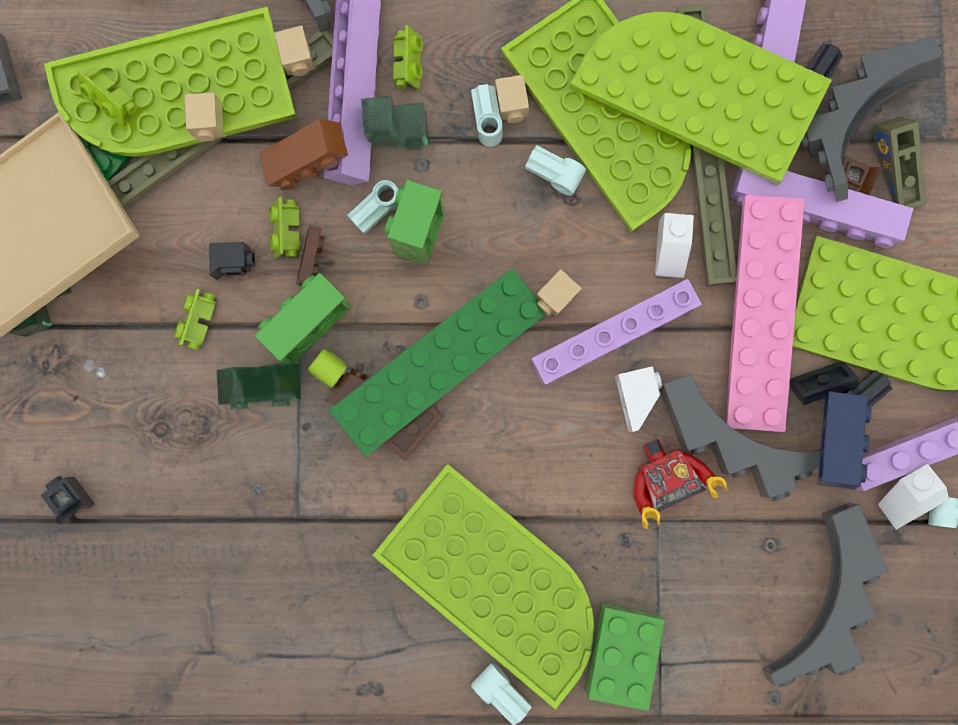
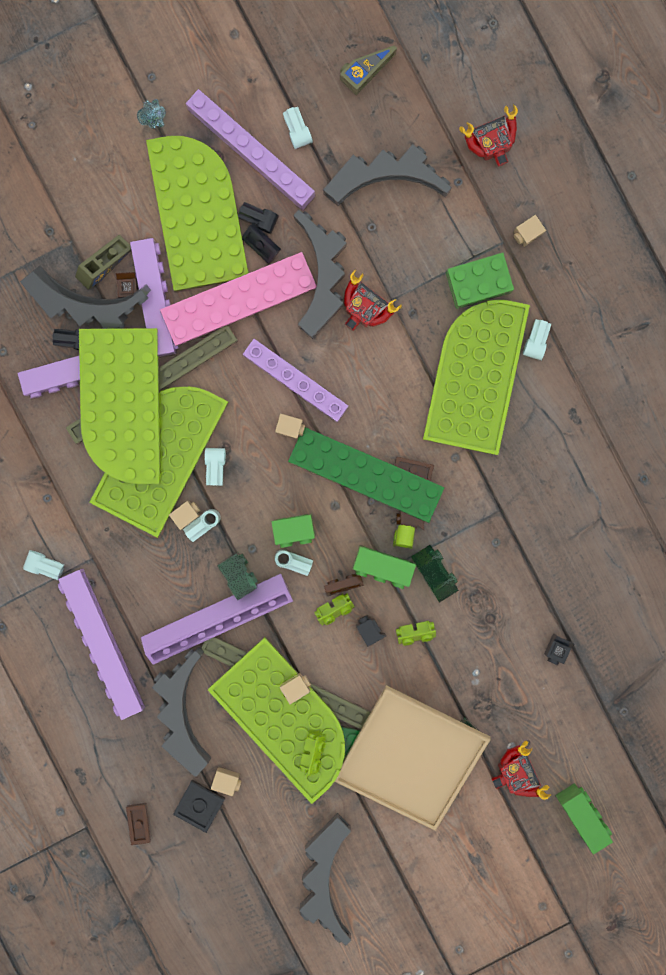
camera: 115 degrees left, 5 degrees up
(294, 51) = (226, 658): tan brick -> none
(303, 154) = (287, 618): dark orange brick -> none
(408, 46) = (184, 594): lime hinge -> none
(638, 394) = (324, 348): white slope -> none
(673, 245) = (224, 372): white slope -> none
(844, 441) = (292, 217): dark blue brick -> none
(913, 496) = (302, 160): white slope -> none

